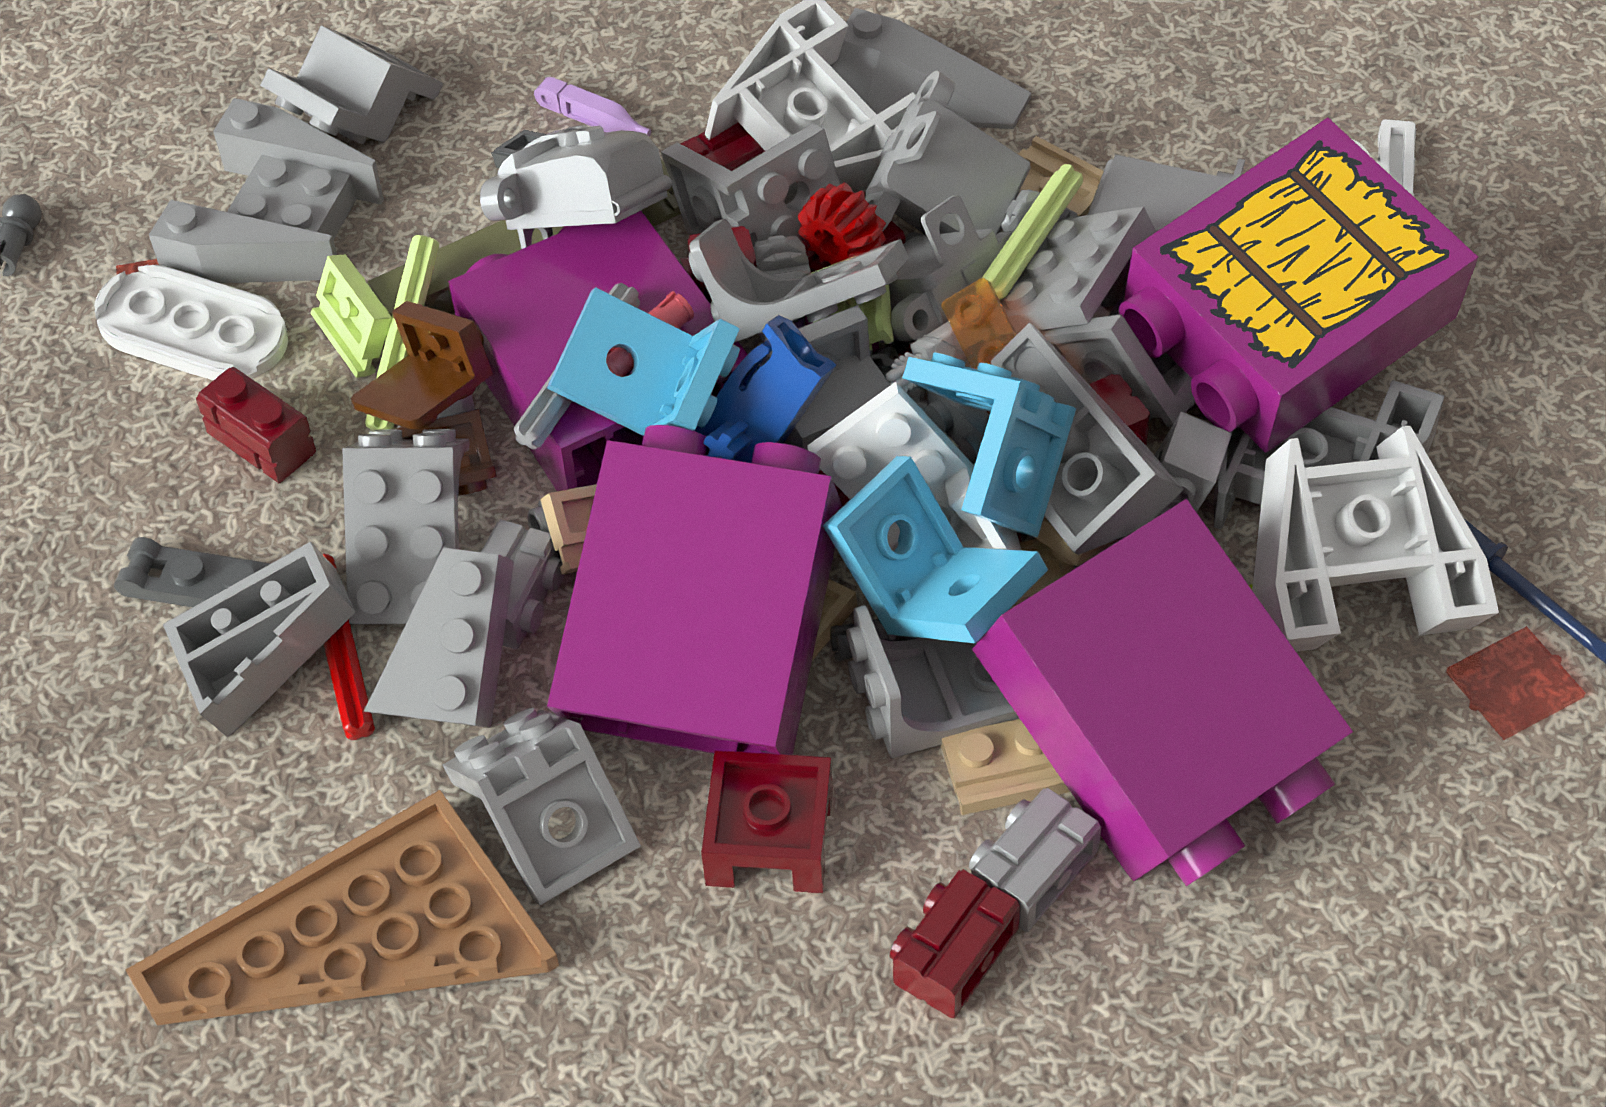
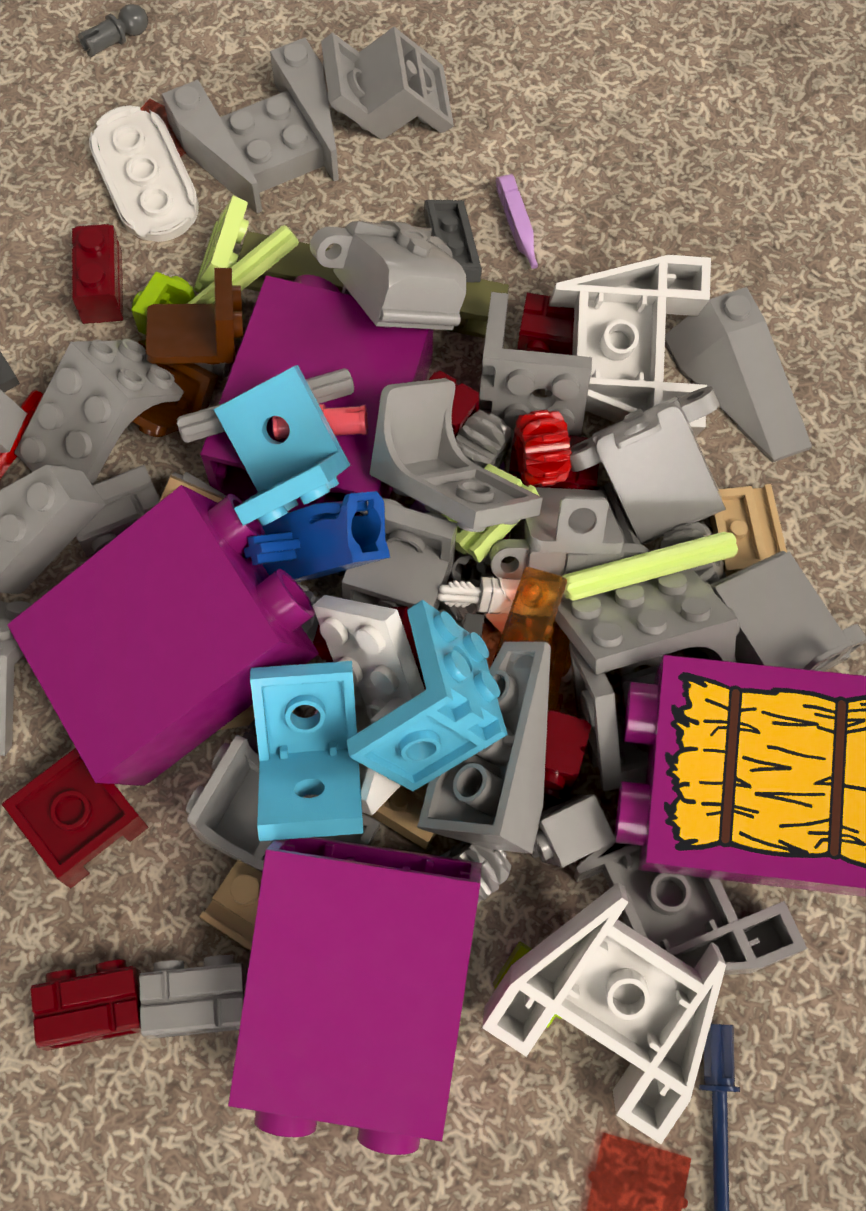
camera: 40 degrees right, 15 degrees up
(339, 387) = (160, 290): none -> lime bracket

